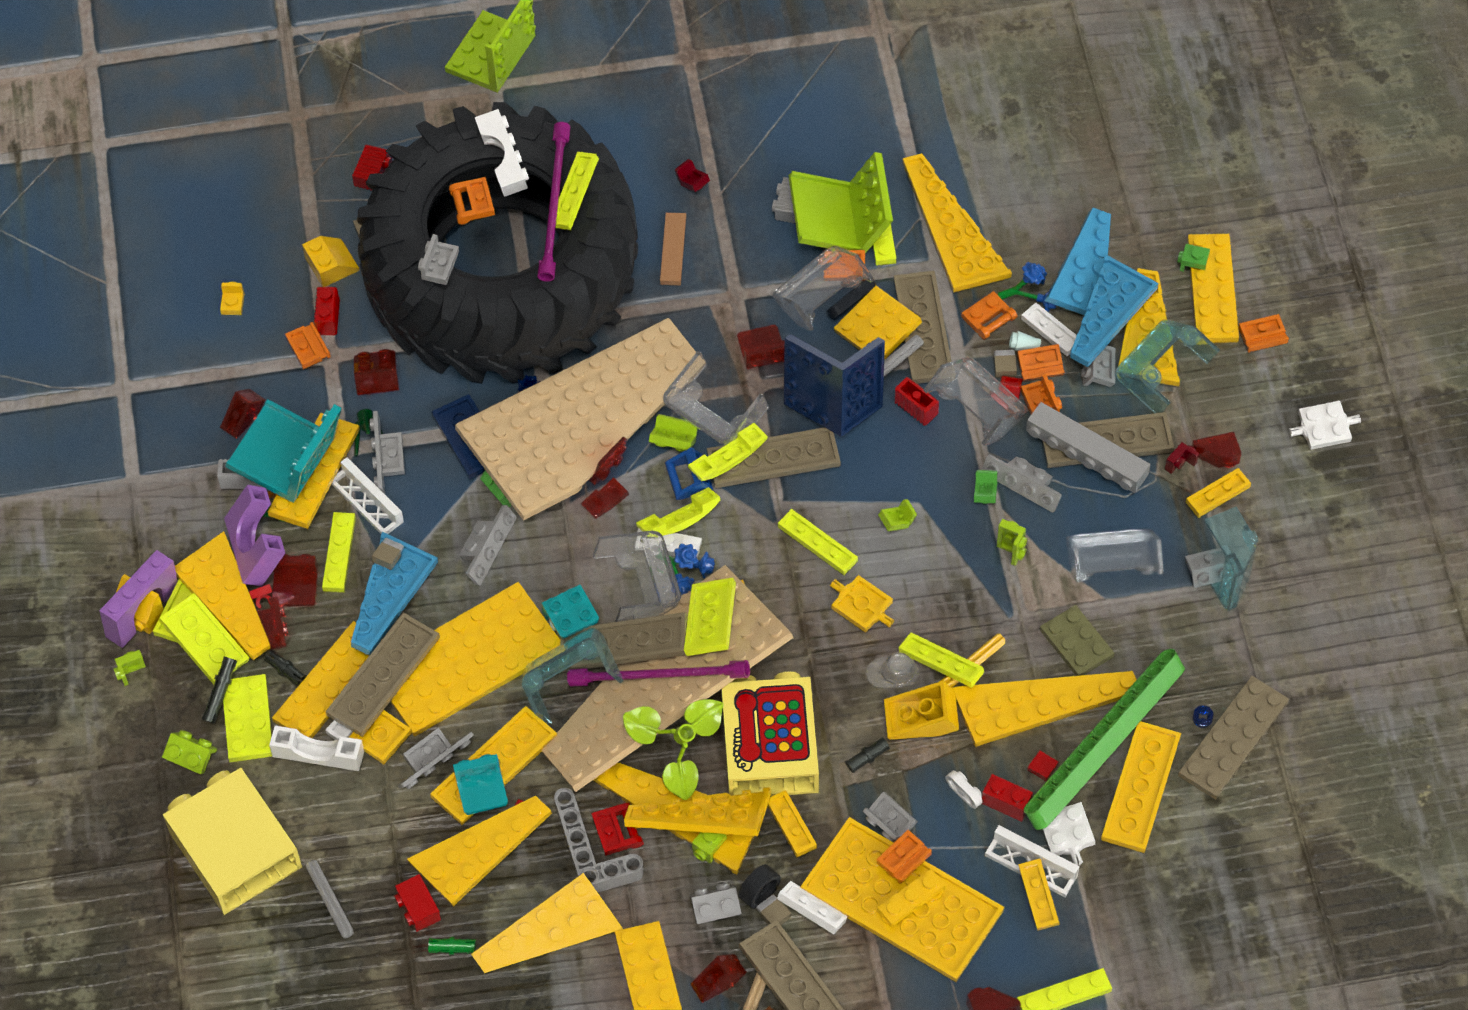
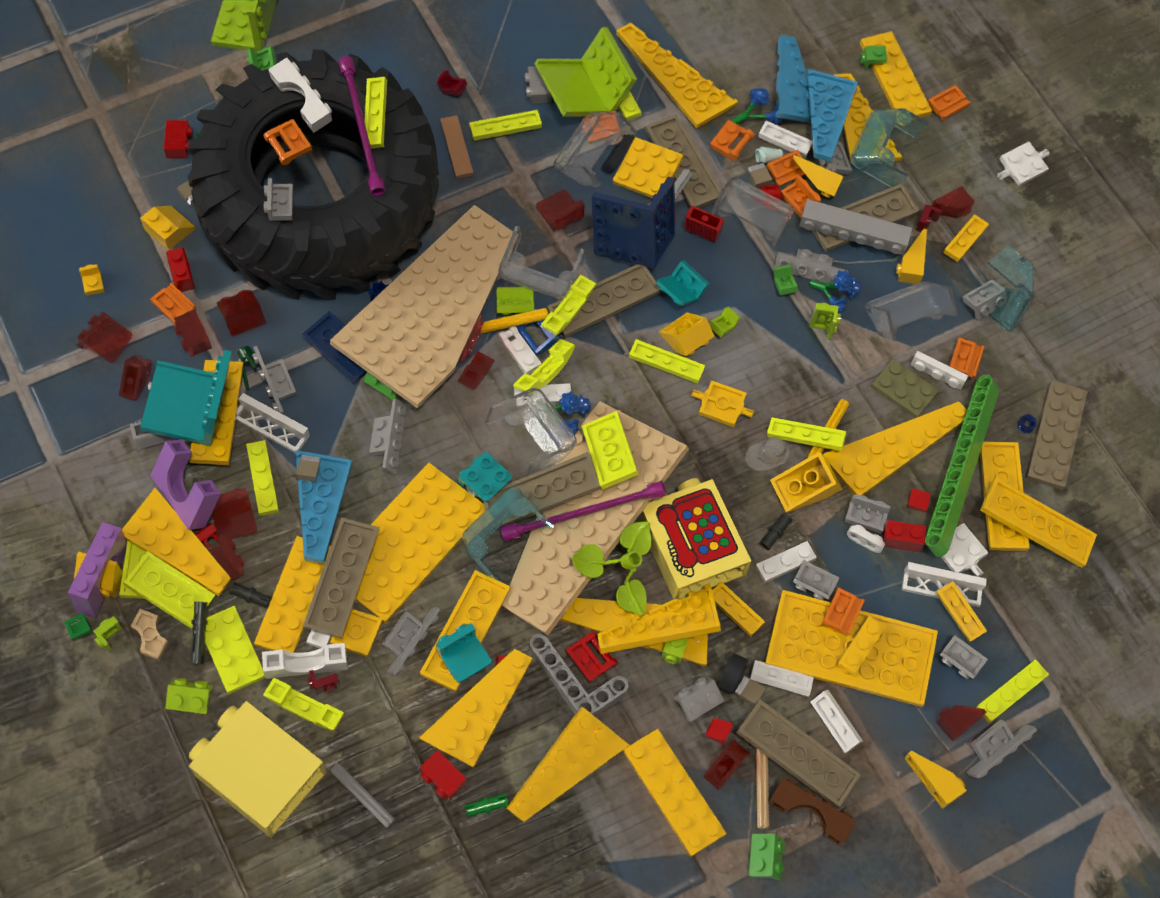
camera: 25 degrees left, 5 degrees up
(101, 652) = (77, 627): none -> green plate
(170, 688) = (152, 643): none -> tan tile
(225, 362) = (104, 337): none -> clear red bracket
(299, 793) = (302, 705): none -> neon yellow slope
(317, 381) = (192, 332): none -> clear red brick
(328, 778) = (326, 684): none -> dark red bracket
(486, 98) = (263, 58): none -> bright green bracket
(660, 488) = (519, 350): none -> white plate
(662, 454) = (514, 320): none -> yellow axle
(725, 942) = (719, 730): none -> red slope
(736, 237) = (505, 125): none -> neon yellow plate
(852, 518) = (687, 333): none -> yellow slope
(854, 968) = (836, 721): none -> white plate
(865, 790) = (785, 562): none -> white plate
(868, 464) = (684, 284): none -> teal bracket
(976, 762) = (867, 513): none -> light grey bracket
(1021, 943) = (963, 657): none -> light grey bracket
(1042, 504) = (843, 282): none -> blue plant
(1073, 383) = (822, 178): none -> yellow slope
(1123, 631) = (939, 370): none -> white plate
(1143, 502) = (912, 264): none -> yellow slope
(1161, 626) = (966, 357): none -> orange plate
(1165, 824) = (1038, 522): none -> yellow plate

